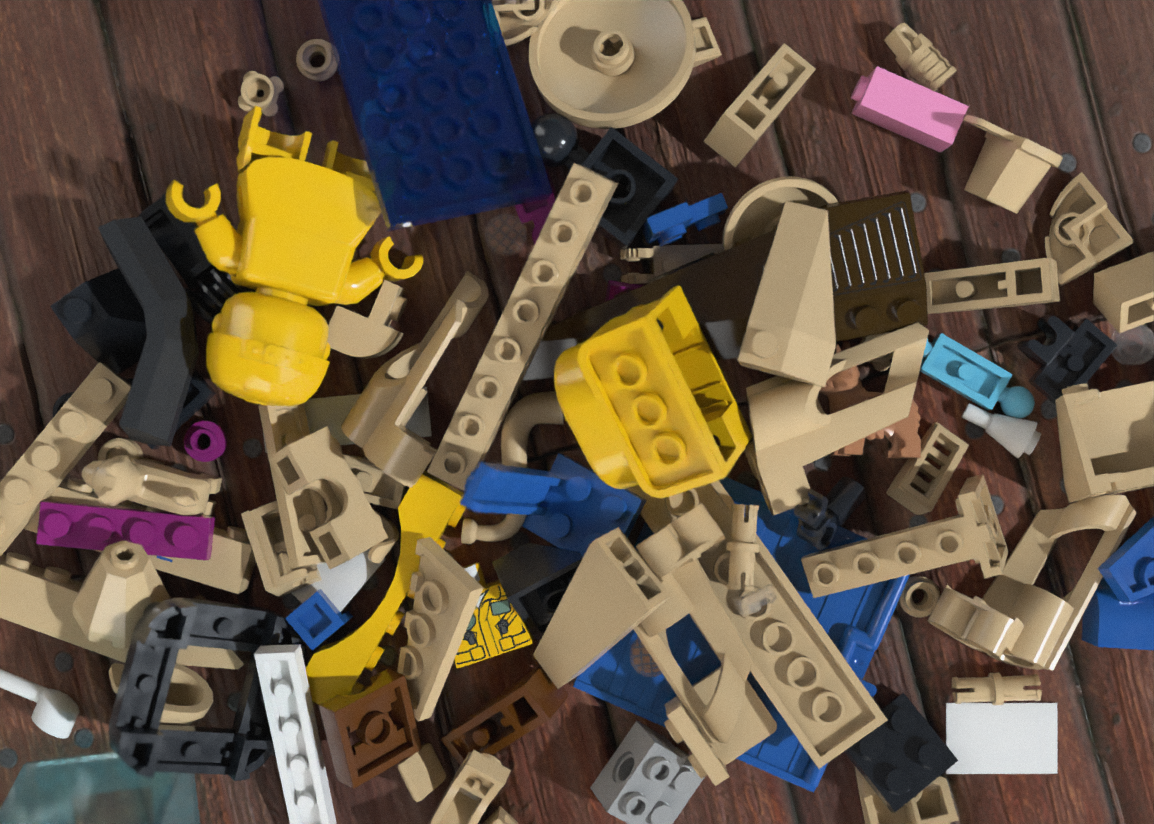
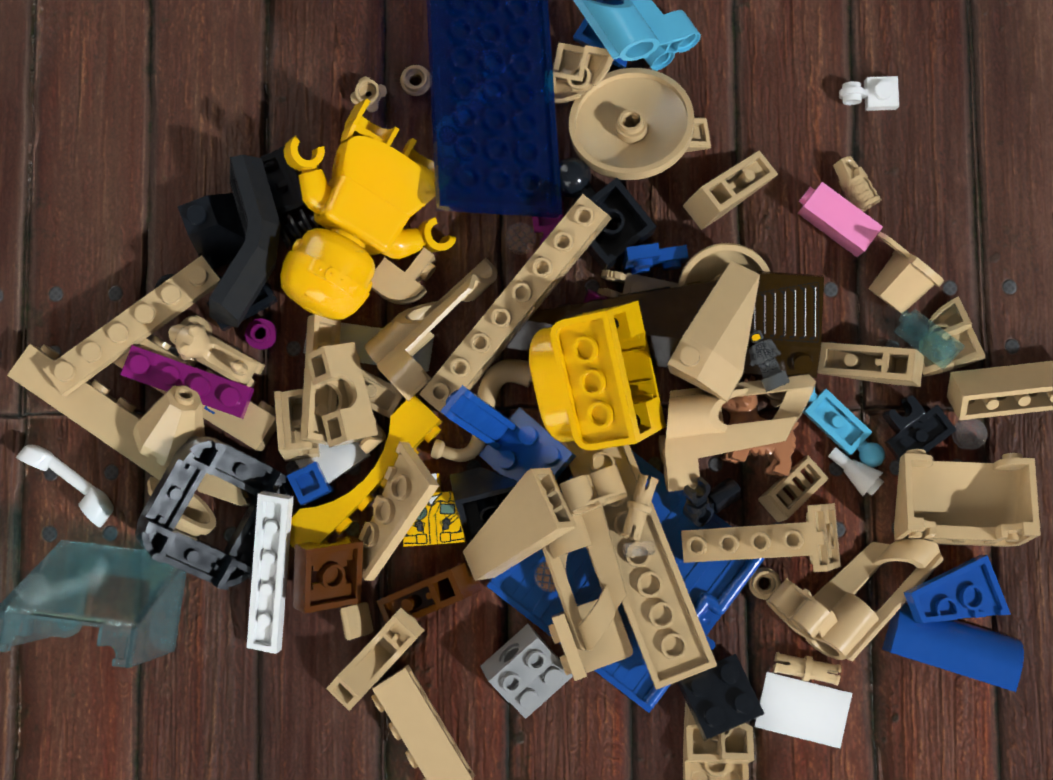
camera: 15 degrees right, 5 degrees down
(857, 312) = (764, 355): none -> dark grey piece
(1057, 237) = (928, 338): none -> clear light blue hinge

